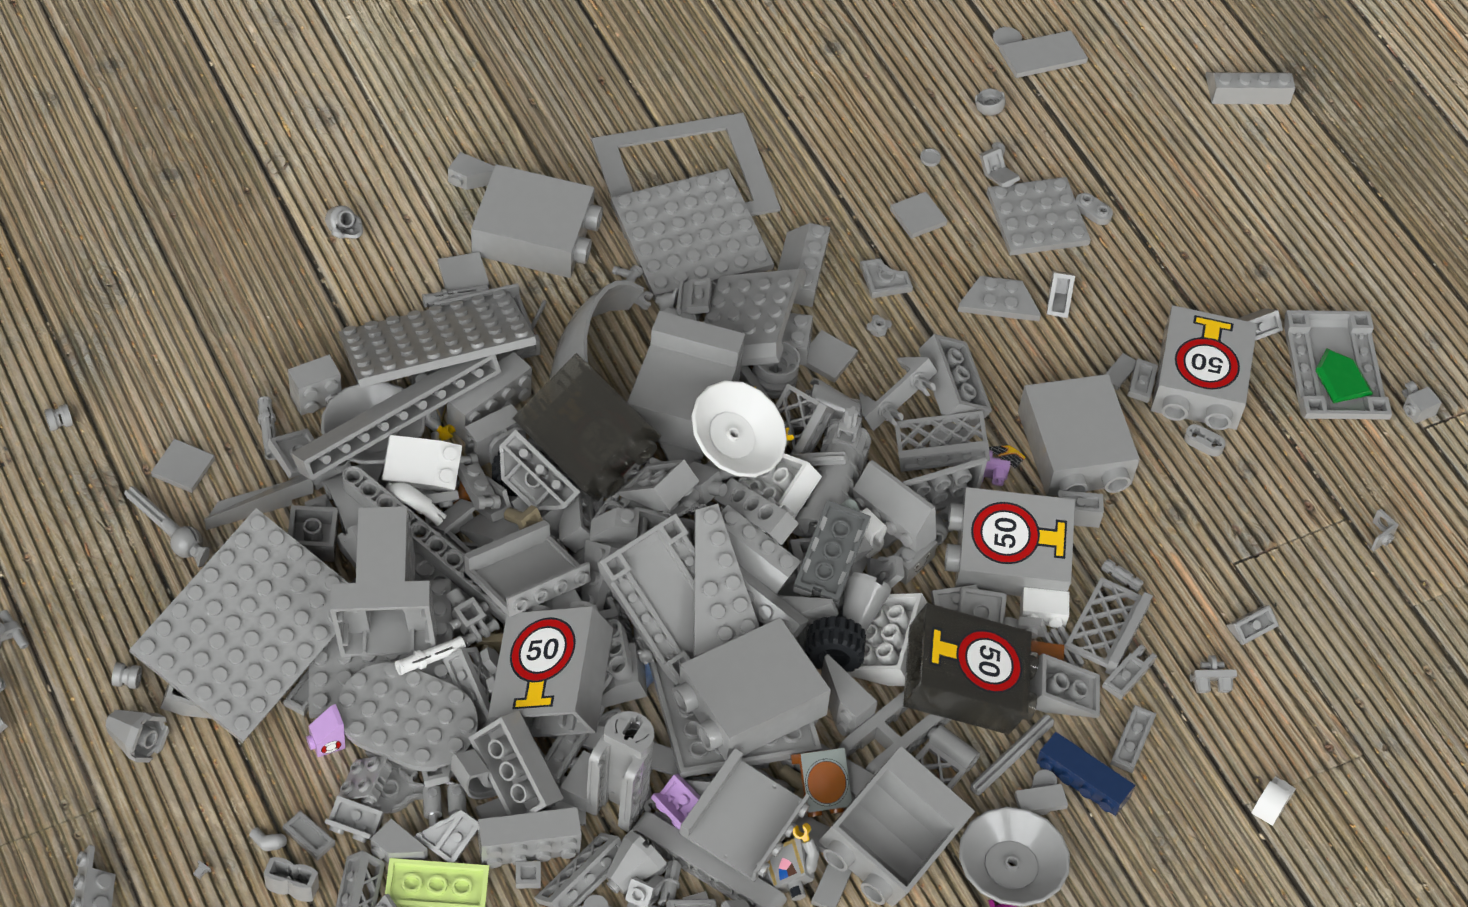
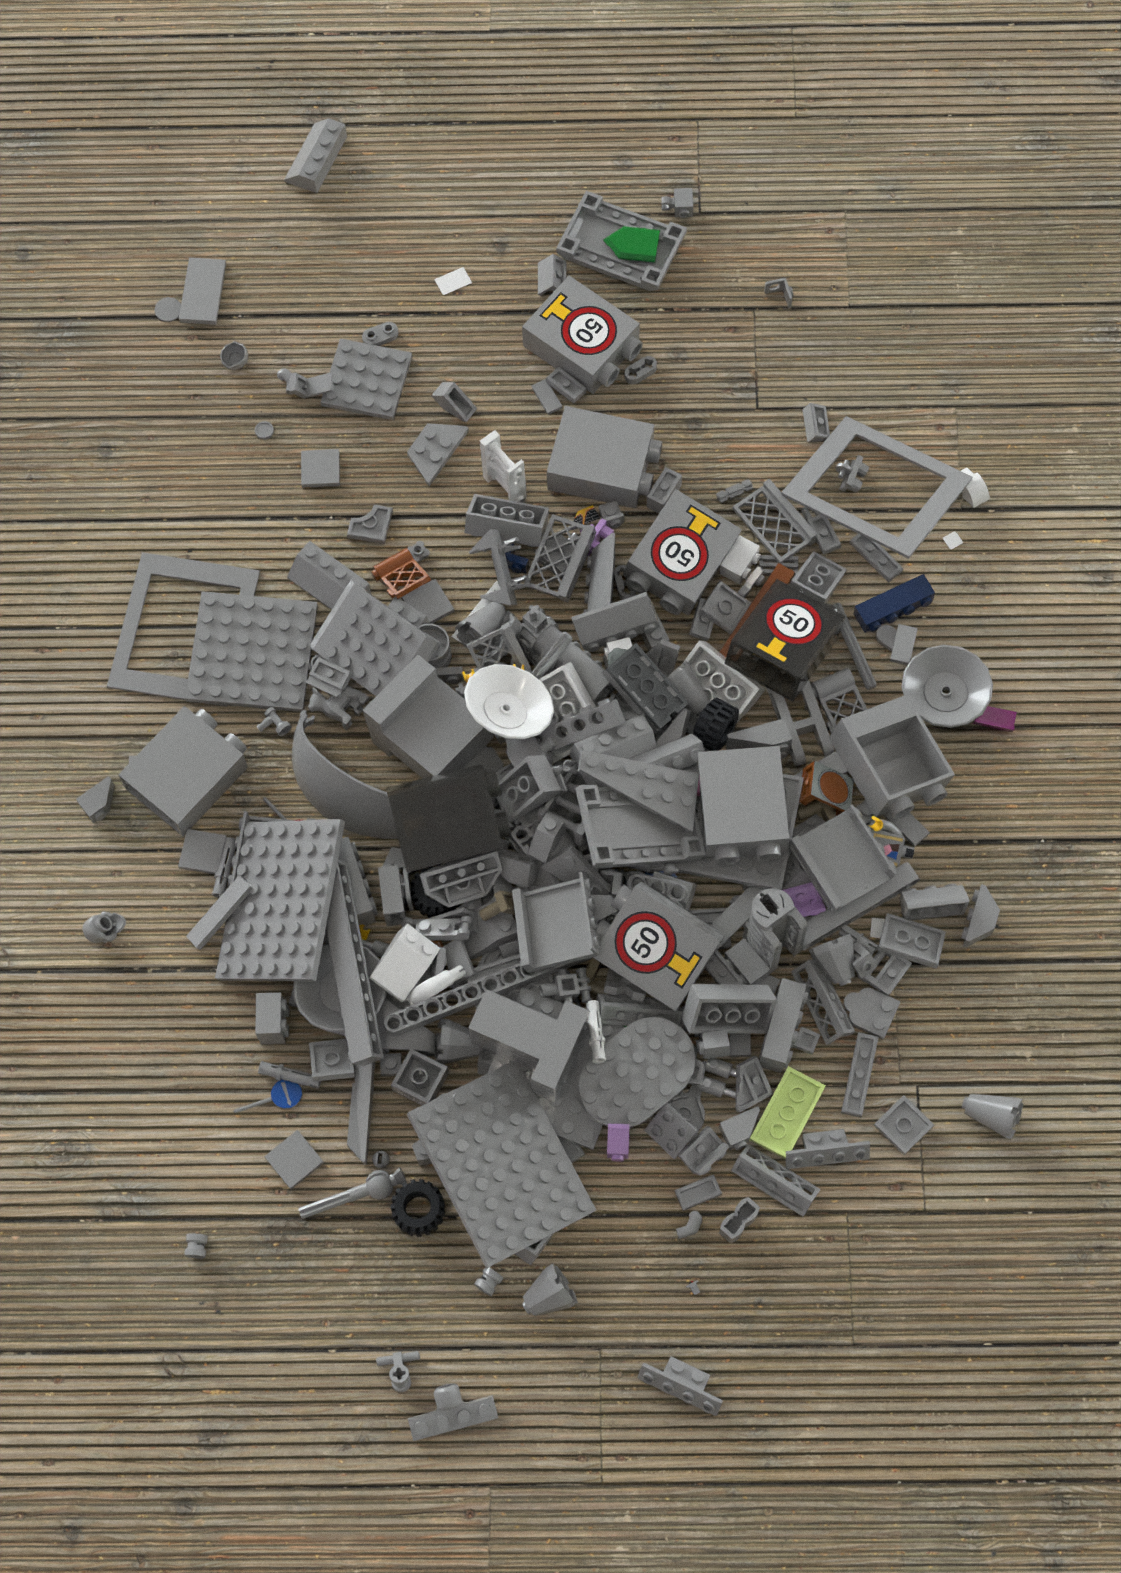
camera: 55 degrees left, 15 degrees up
(168, 569) = (409, 1192): none -> black tyre
(216, 537) = (385, 1159): none -> light grey hinge
(245, 434) = (283, 1094): none -> blue piece
(404, 305) = (219, 912): none -> light grey tile
(842, 314) = (397, 567): none -> dark orange piece
(919, 403) = (517, 563): none -> dark blue bracket
(1003, 348) = (500, 467): none -> white fence
(1023, 474) = (612, 514): none -> light grey bracket
(1149, 743) = (923, 522): none -> light grey door
(1194, 246) = (453, 281): none -> white sticker
(1200, 809) = (952, 540): none -> white sticker

